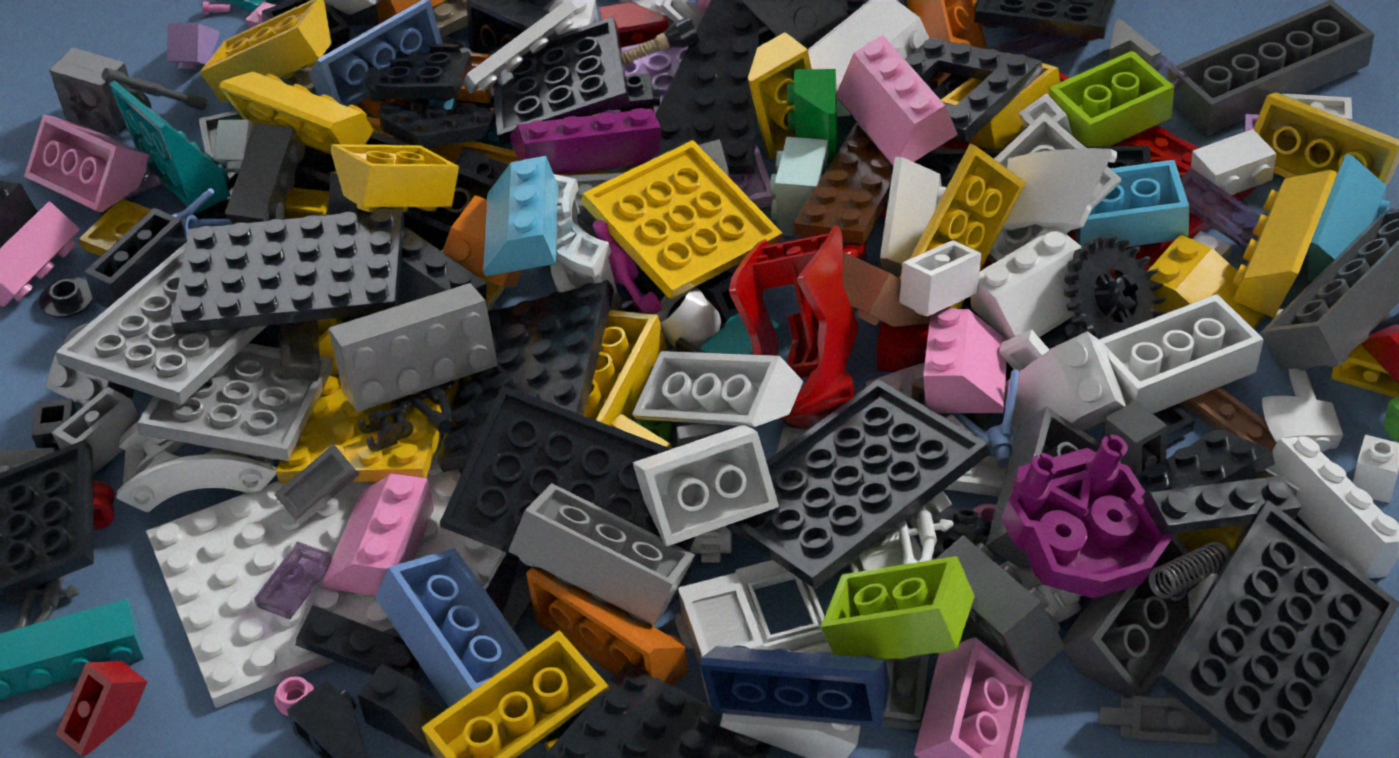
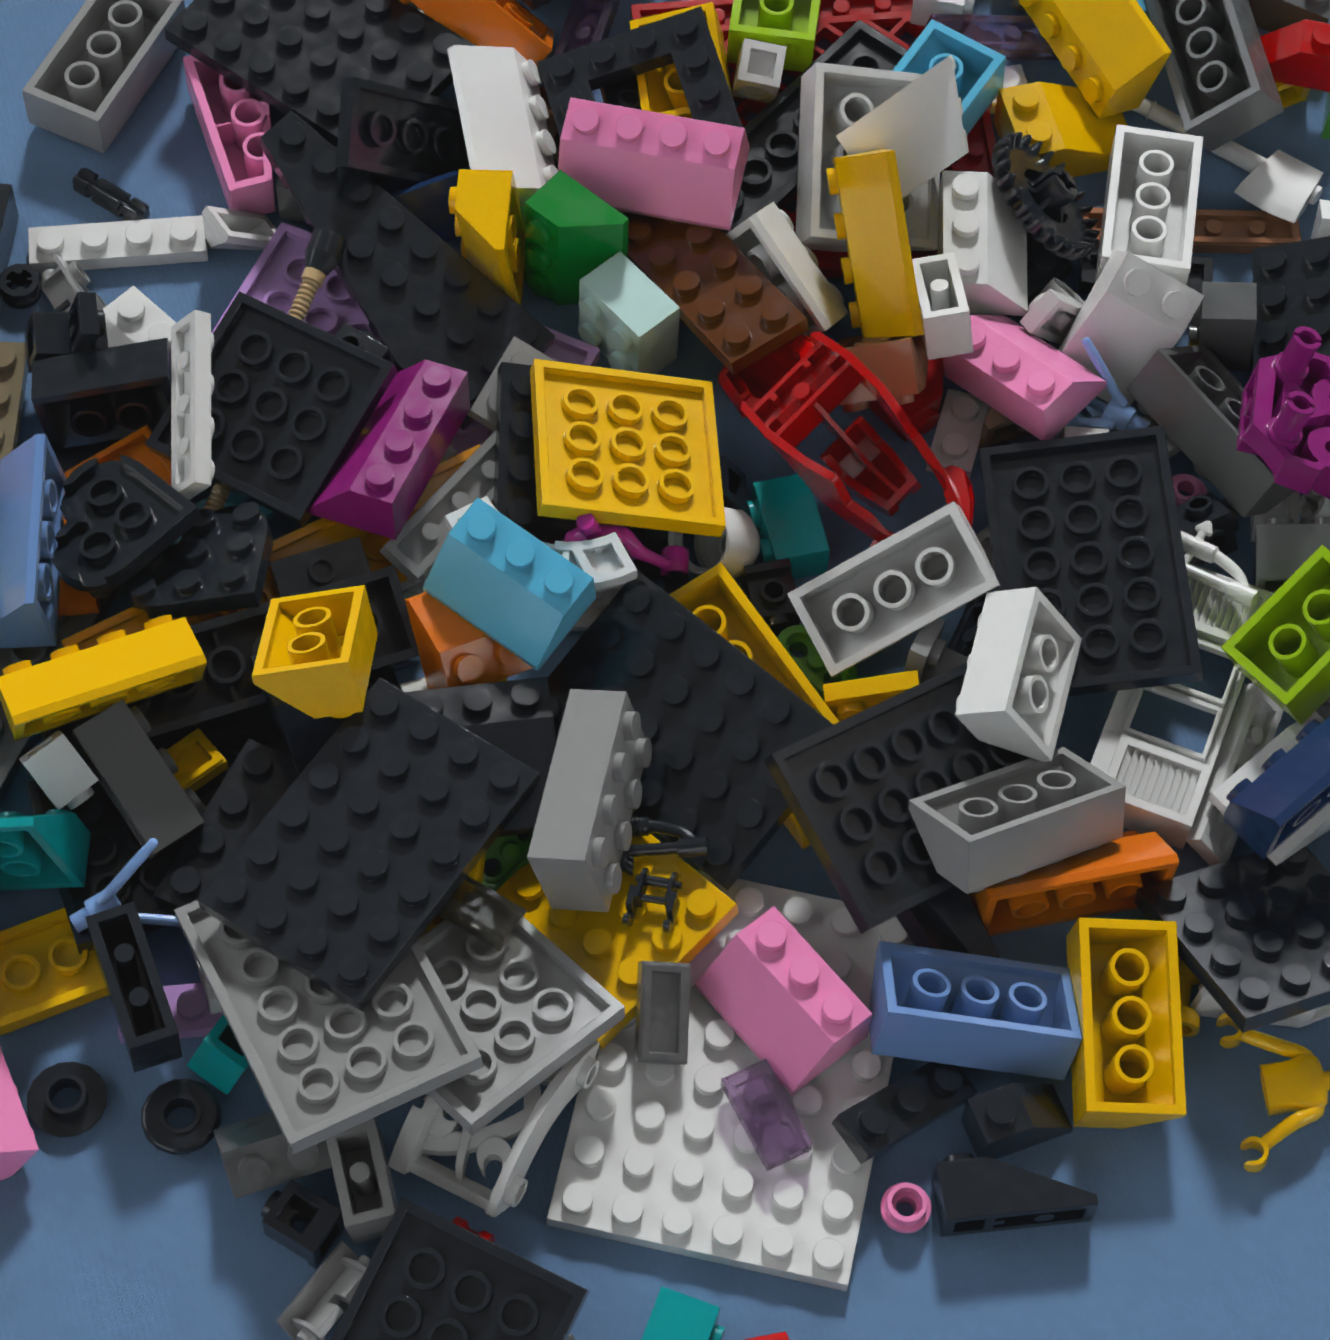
camera: 60 degrees left, 15 degrees up
(635, 23) = (193, 282): slope -> none

